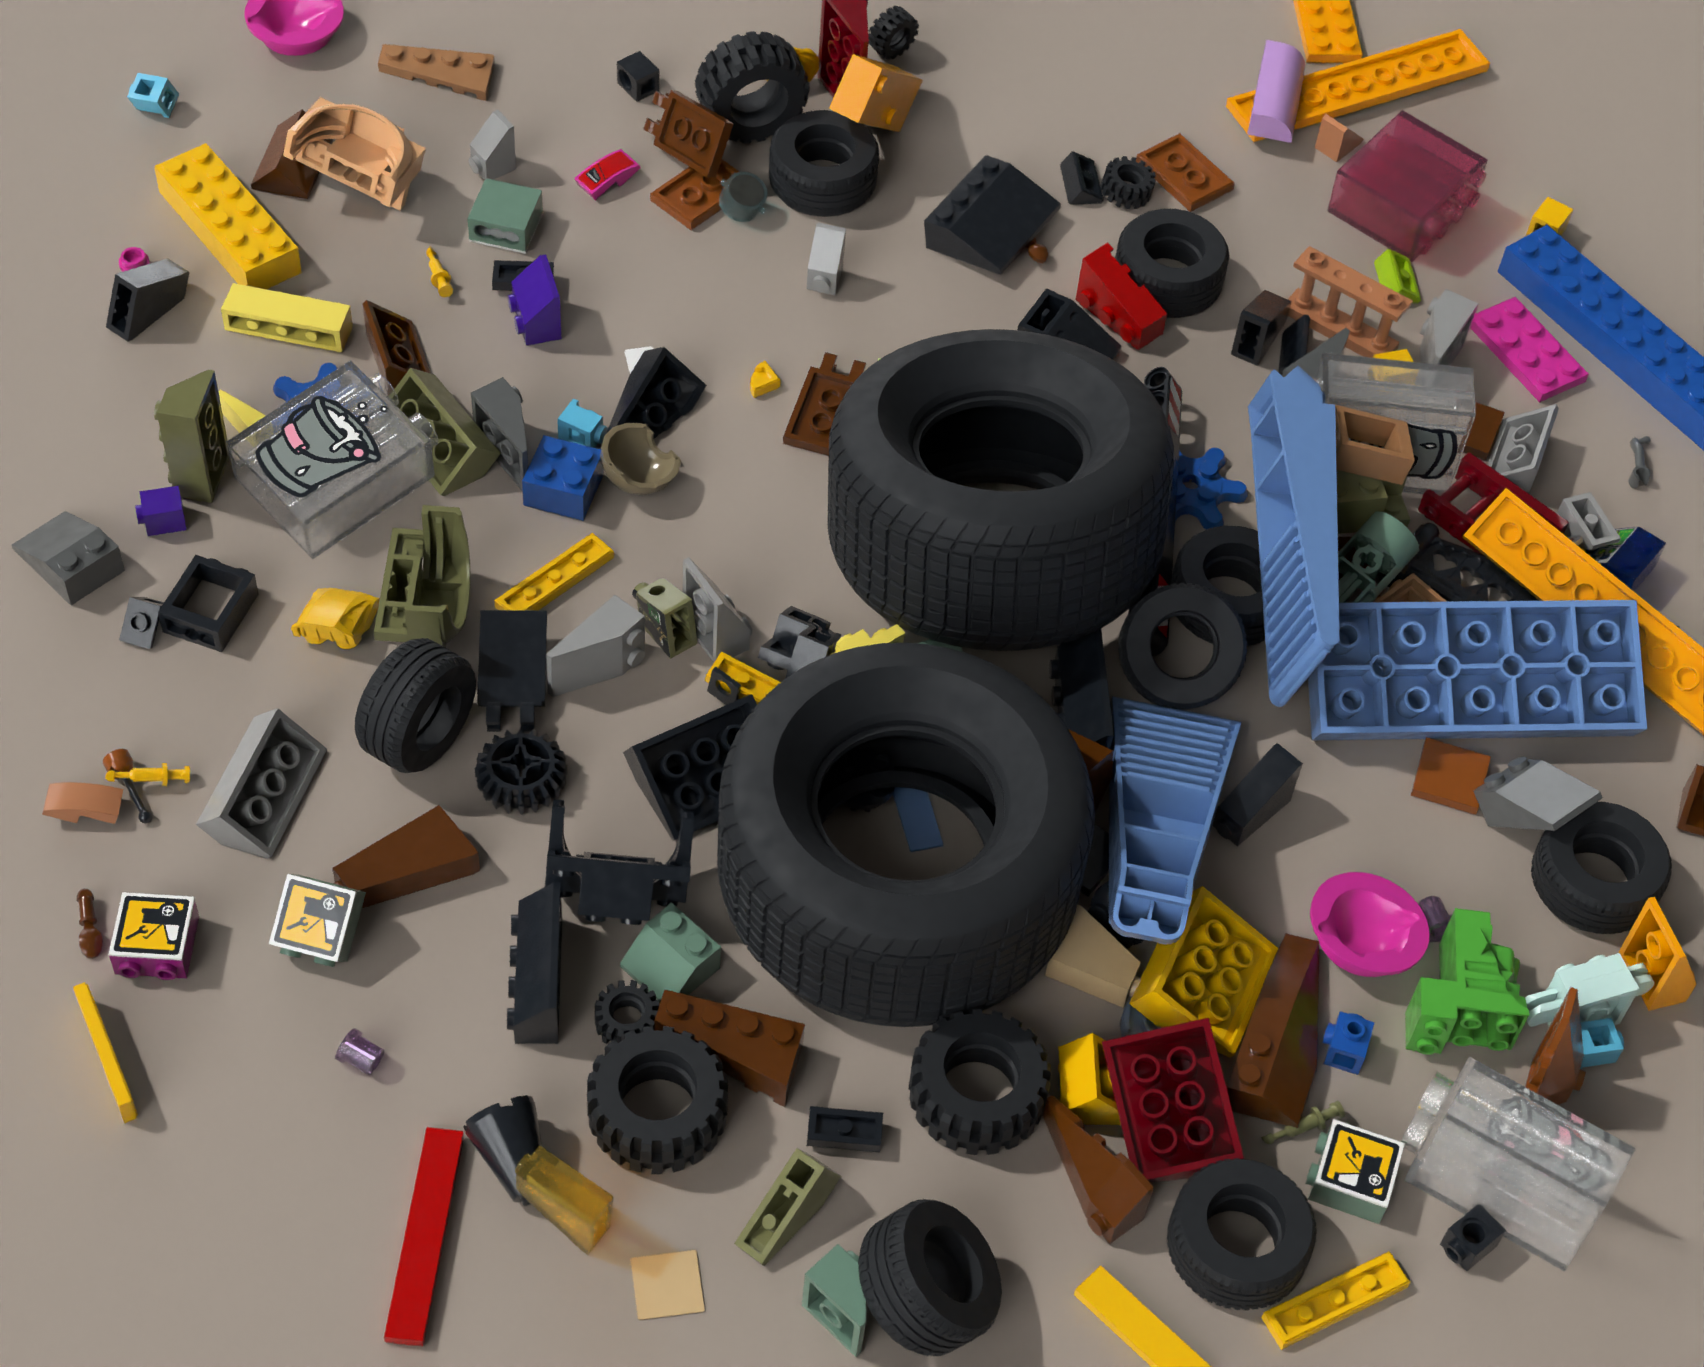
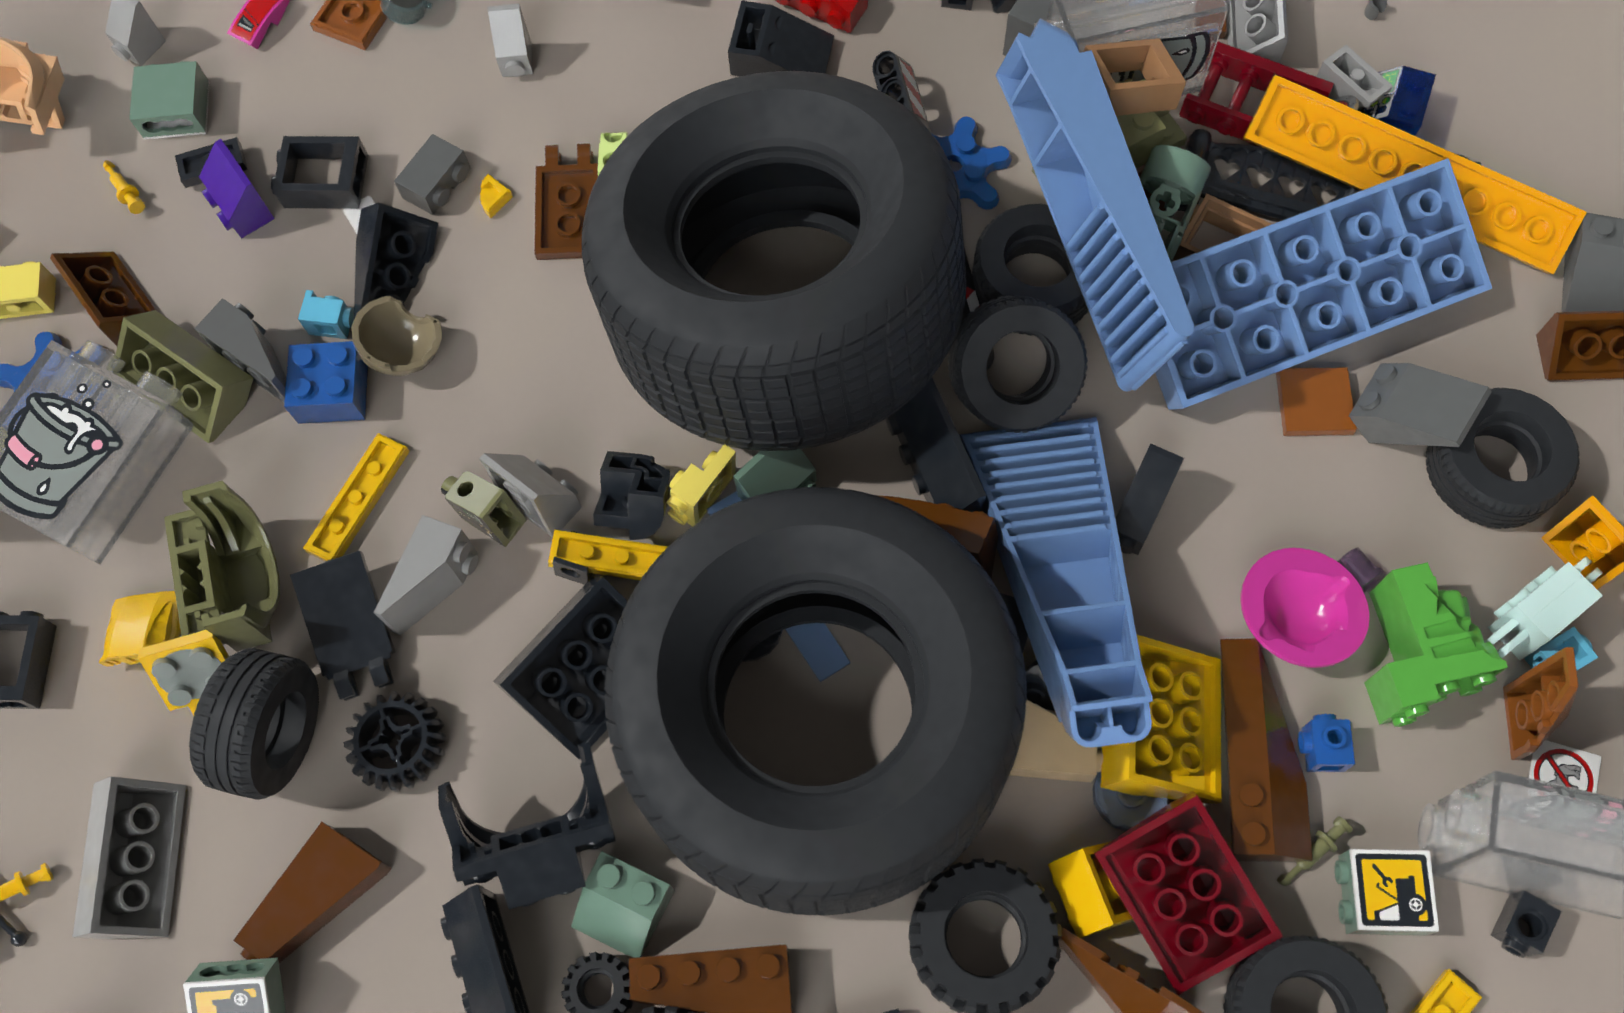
camera: 10 degrees left, 15 degrees up
(363, 646) = (183, 667): none -> piece
(613, 331) = (320, 196): none -> black window
(716, 344) = (432, 174): none -> dark grey piece

